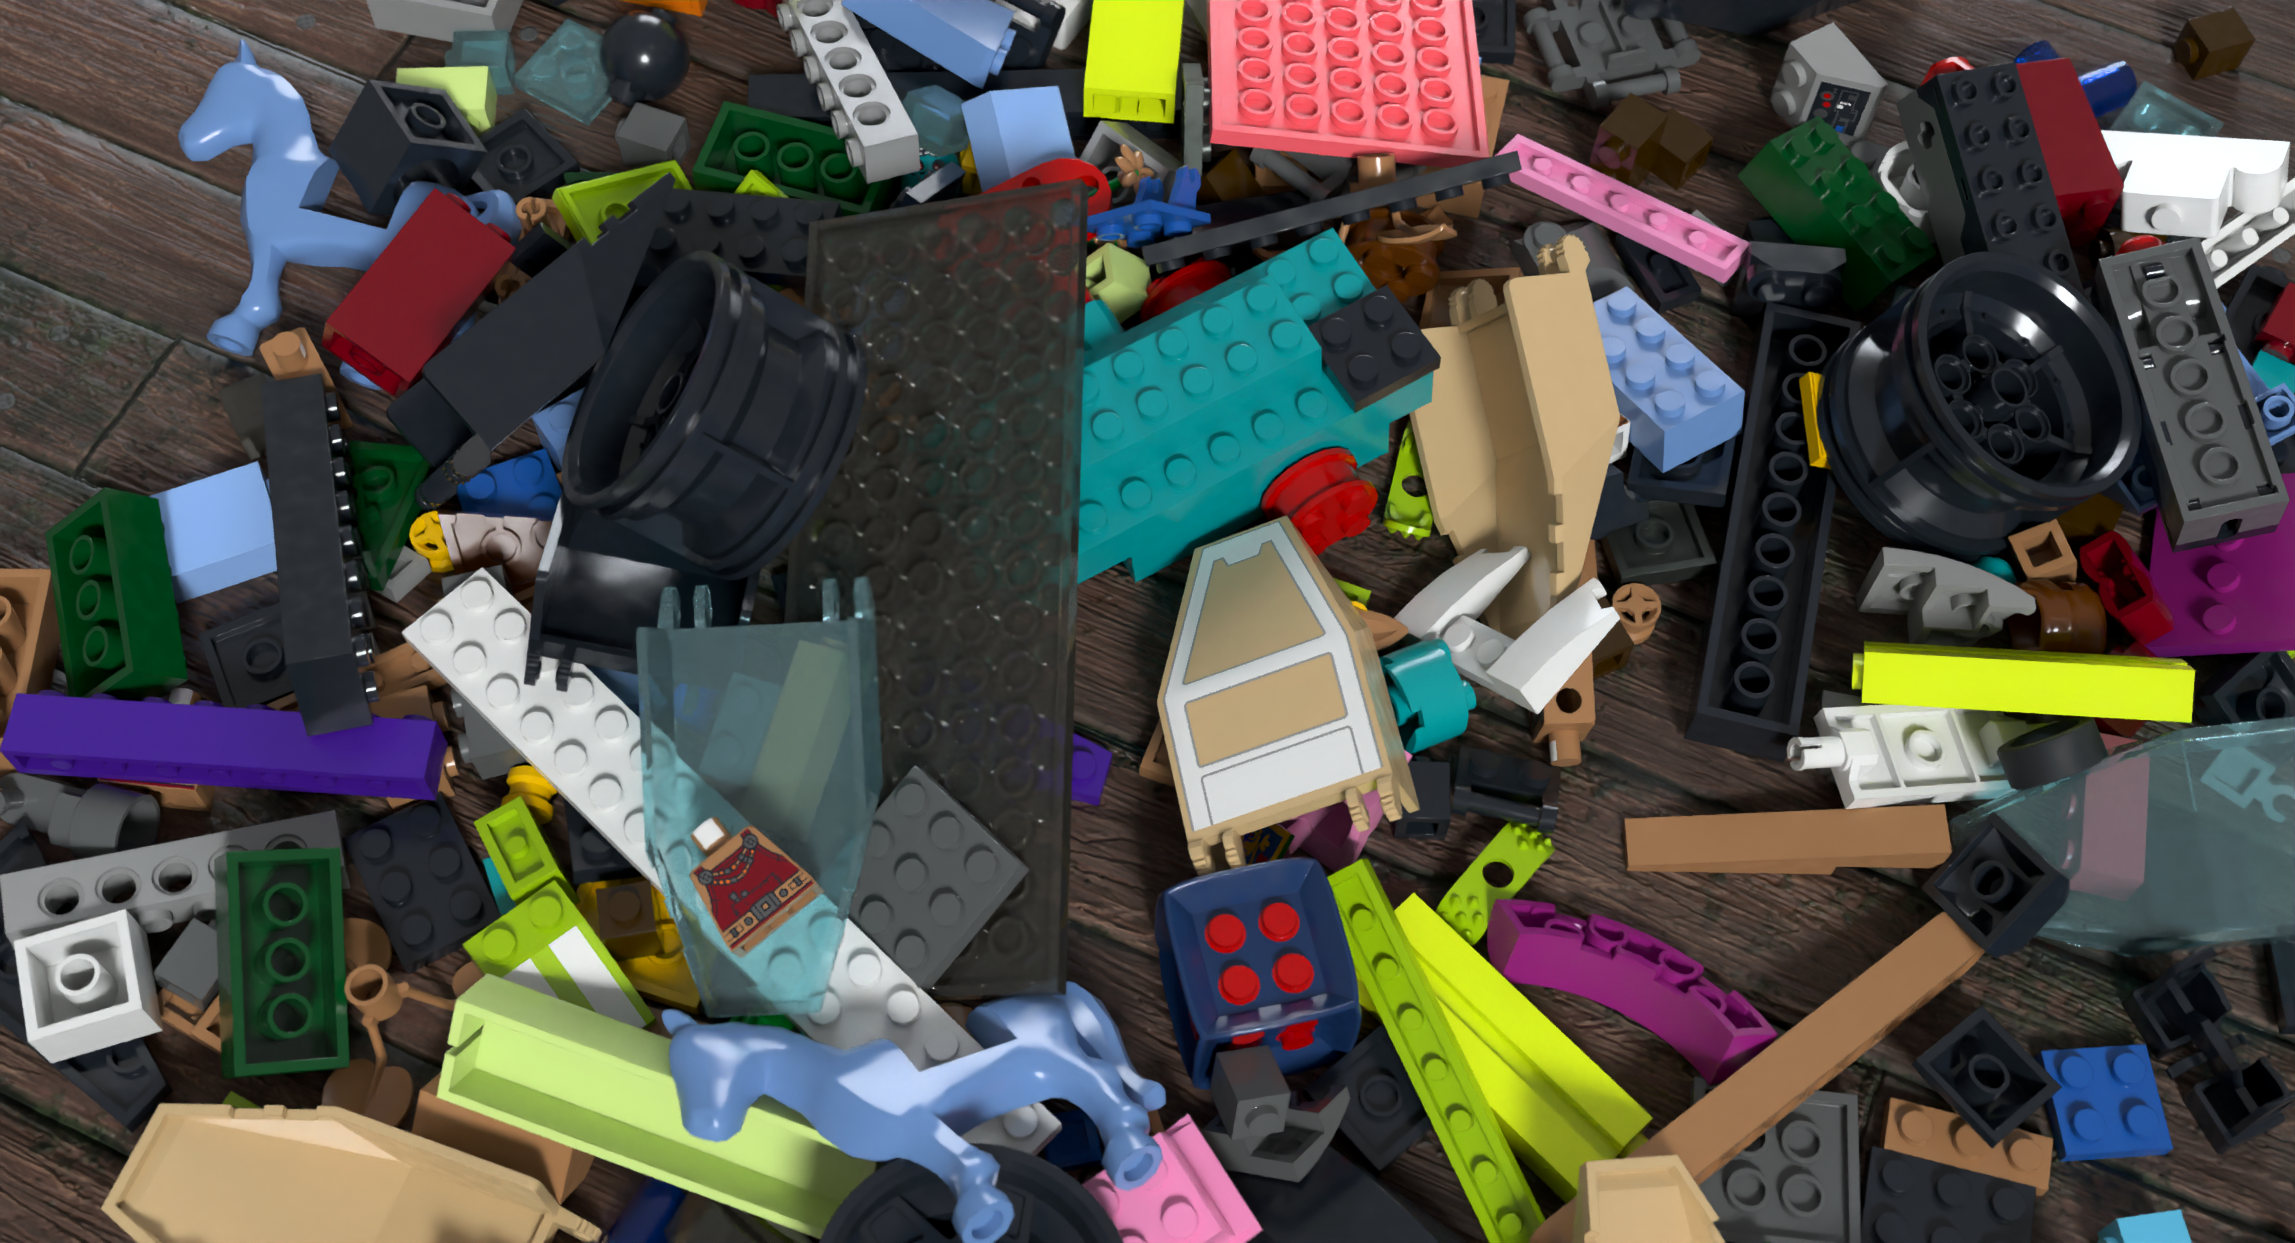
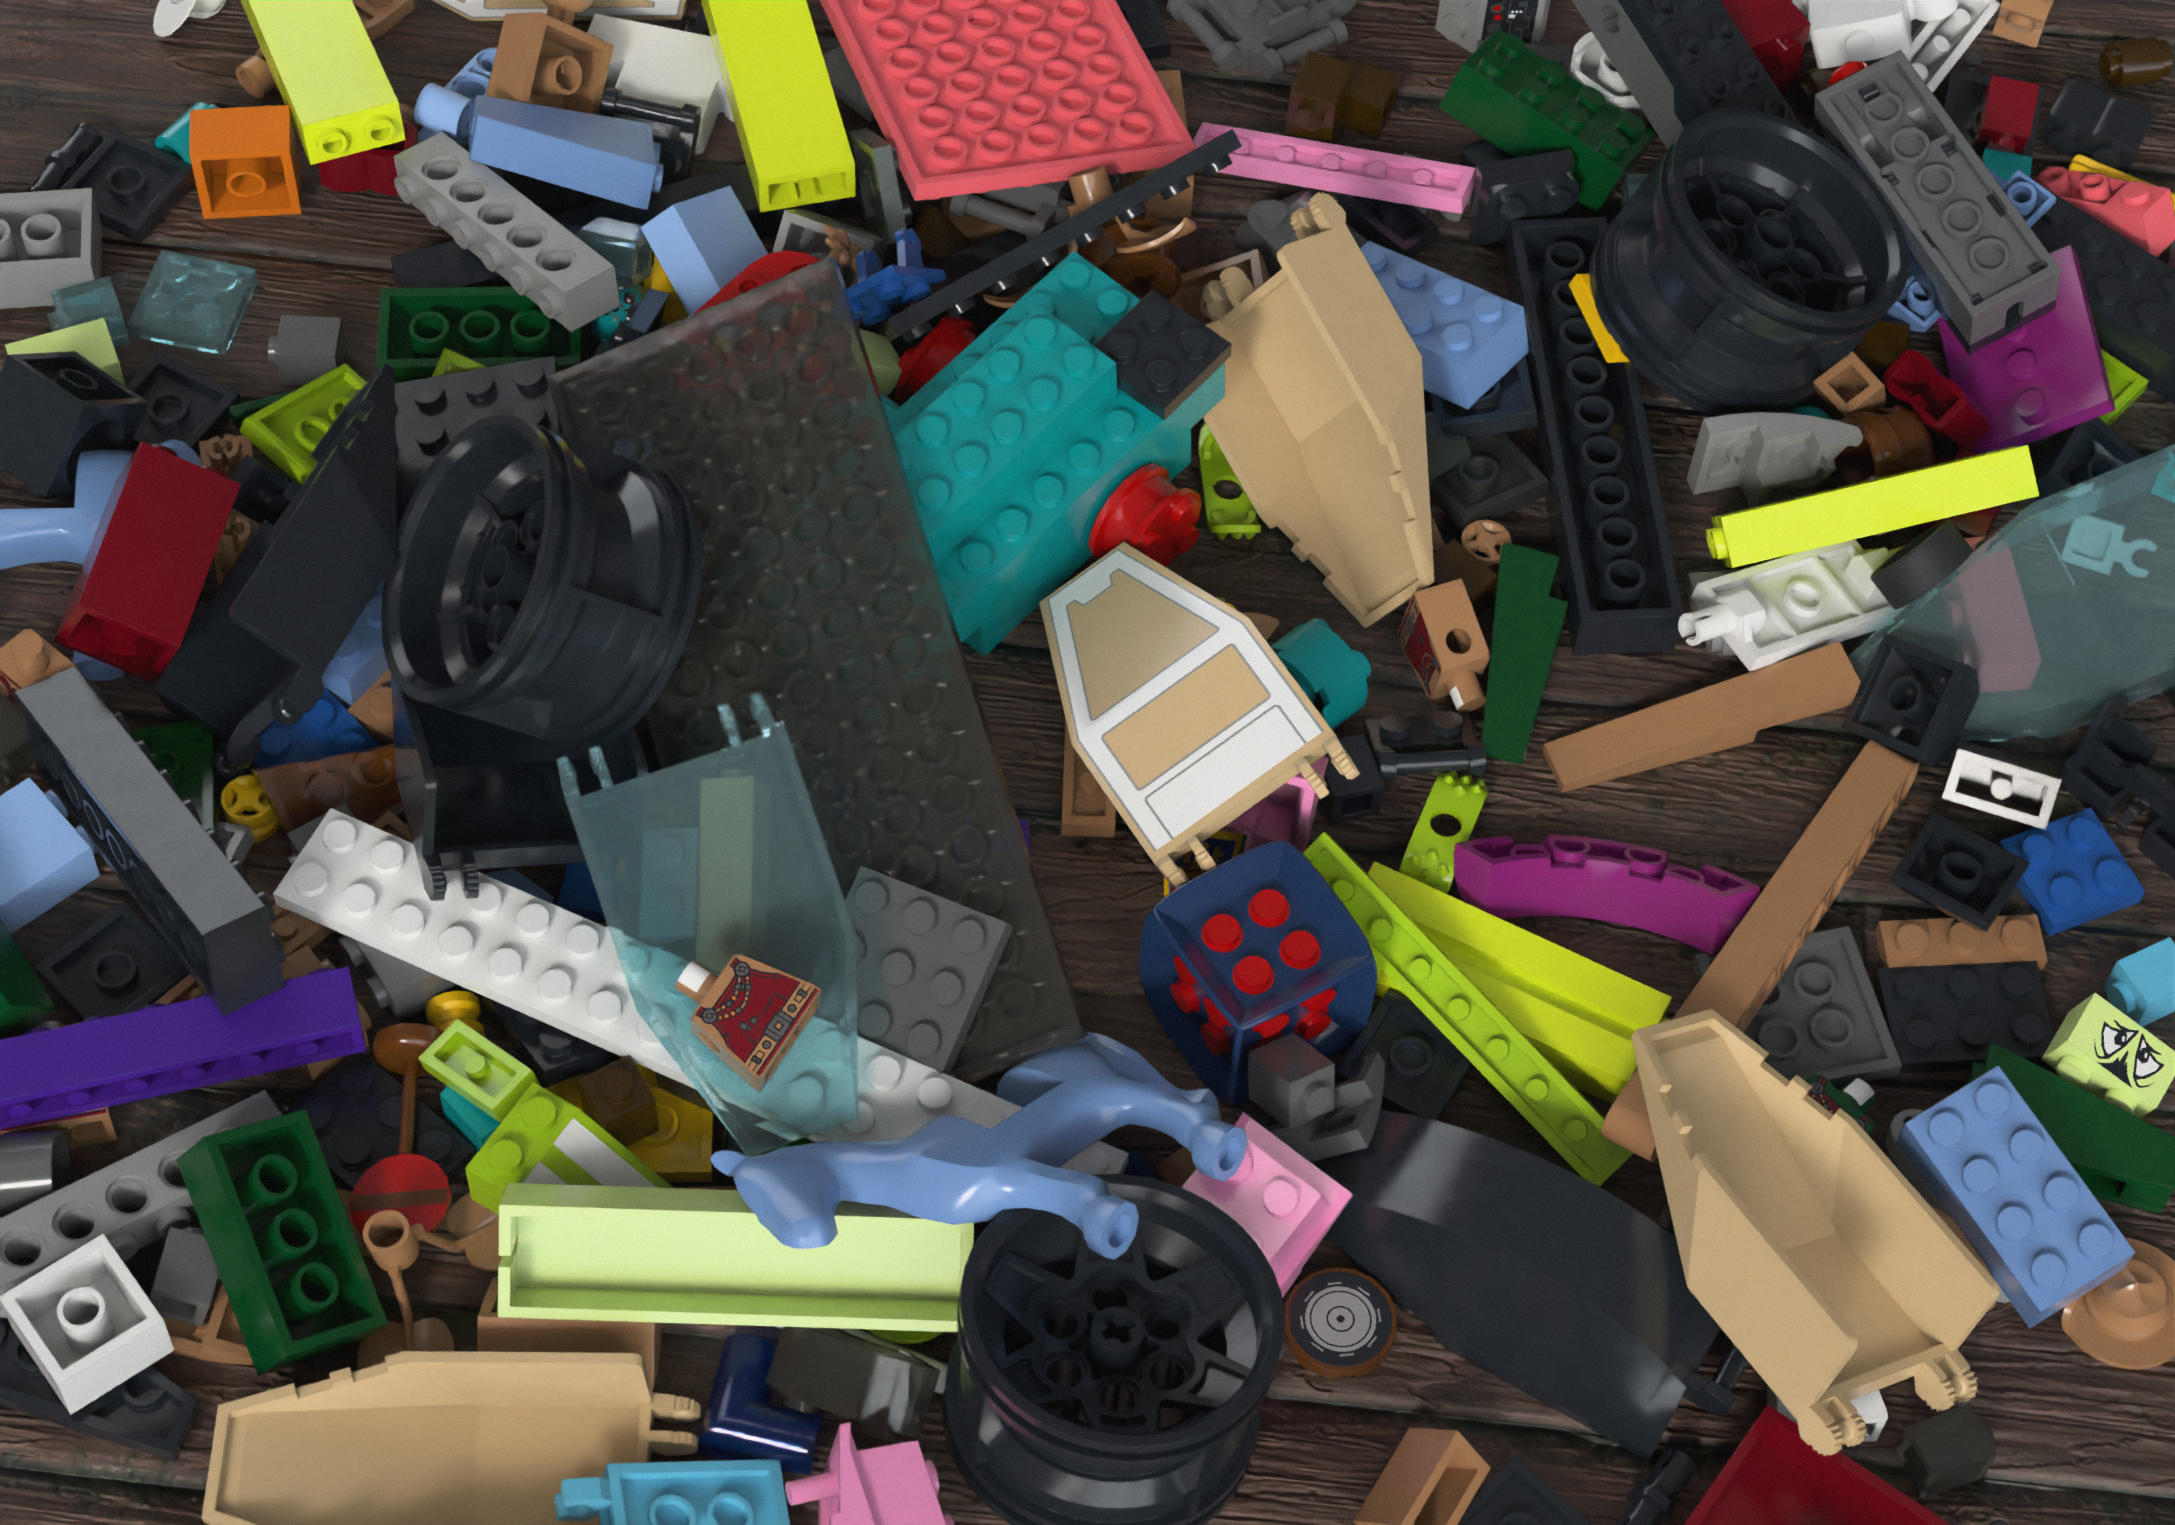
camera: 20 degrees left, 5 degrees down
(421, 941) = (406, 1180): none -> piece
(643, 57) = (268, 268): black brick -> none
(1518, 669) = (1408, 622): white wedge -> none
(1632, 723) = (1521, 649): none -> dark green wedge
(2061, 996) = (2001, 784): none -> brick

